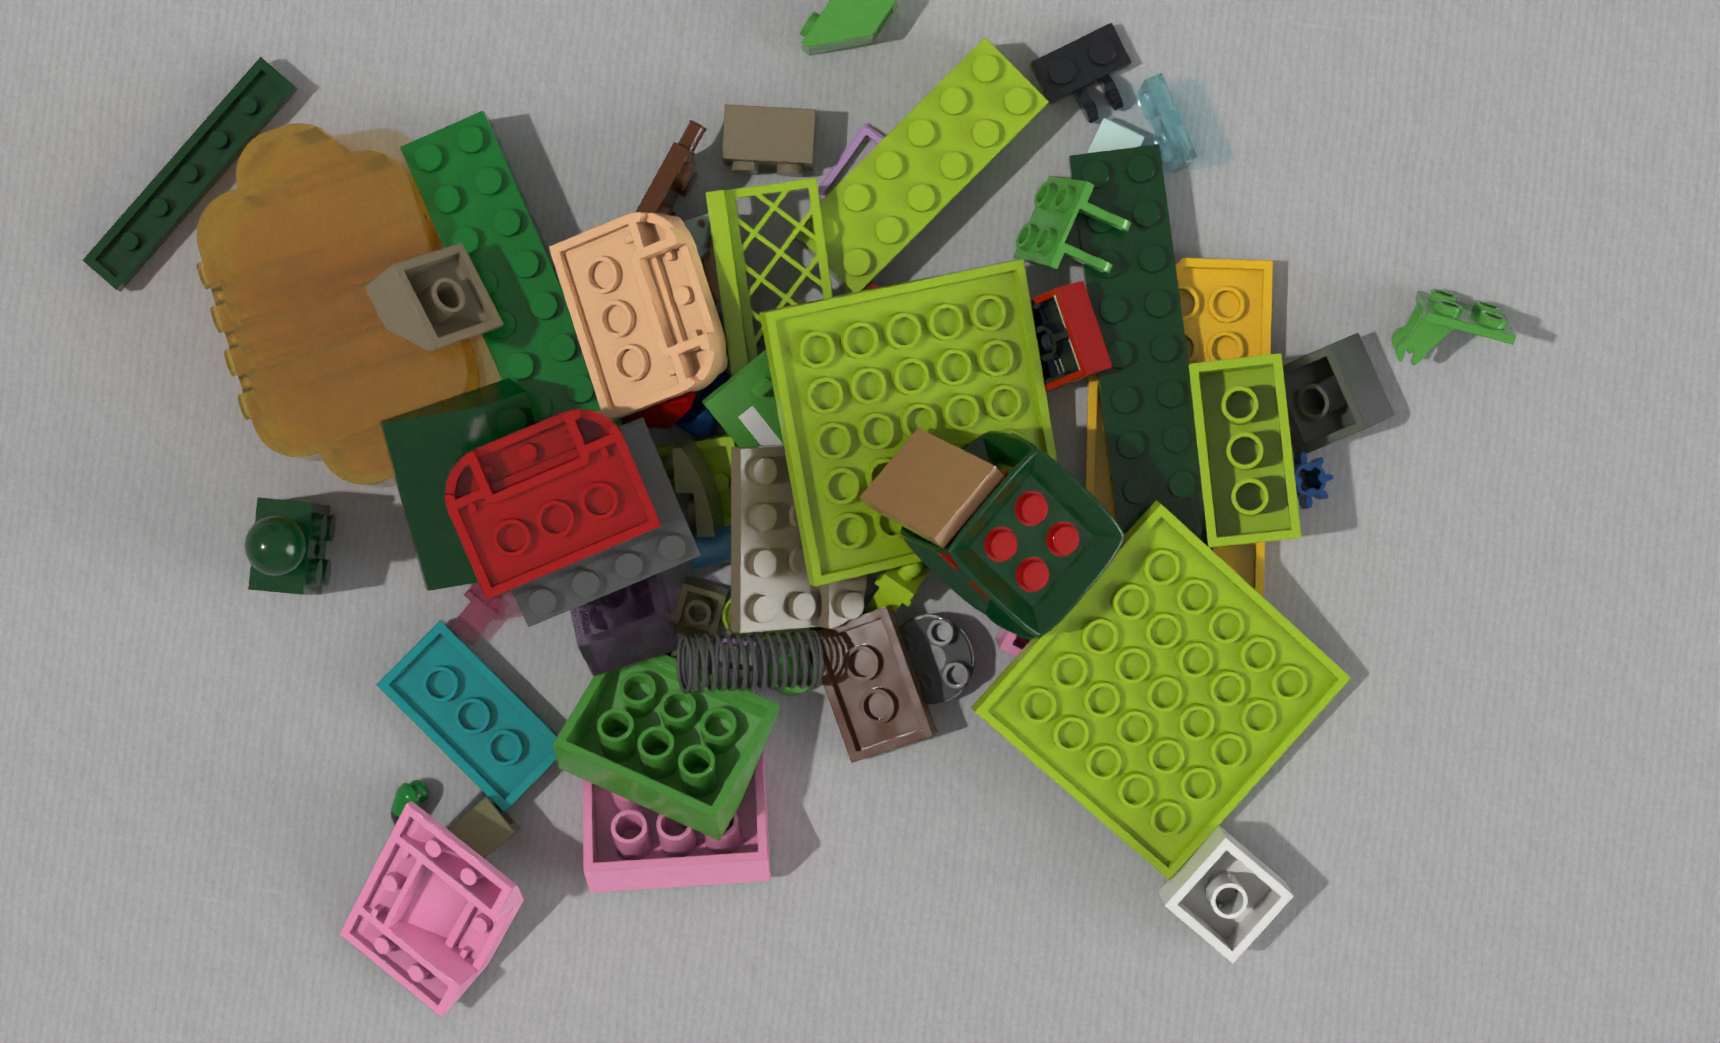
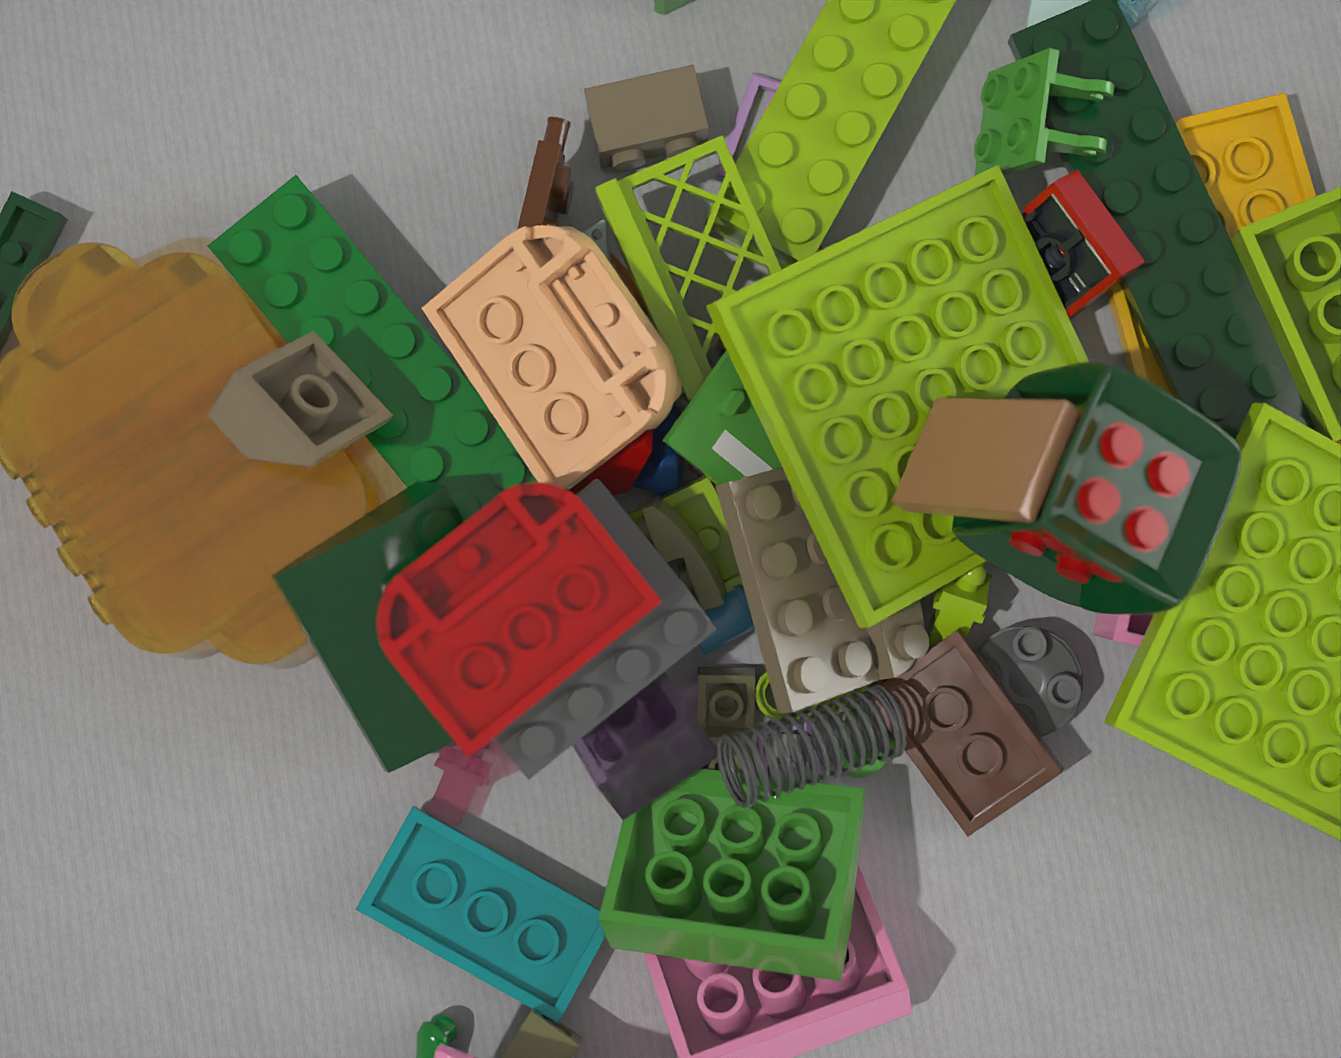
camera: 20 degrees left, 5 degrees down
(290, 546) = (201, 767): dark green brick -> none

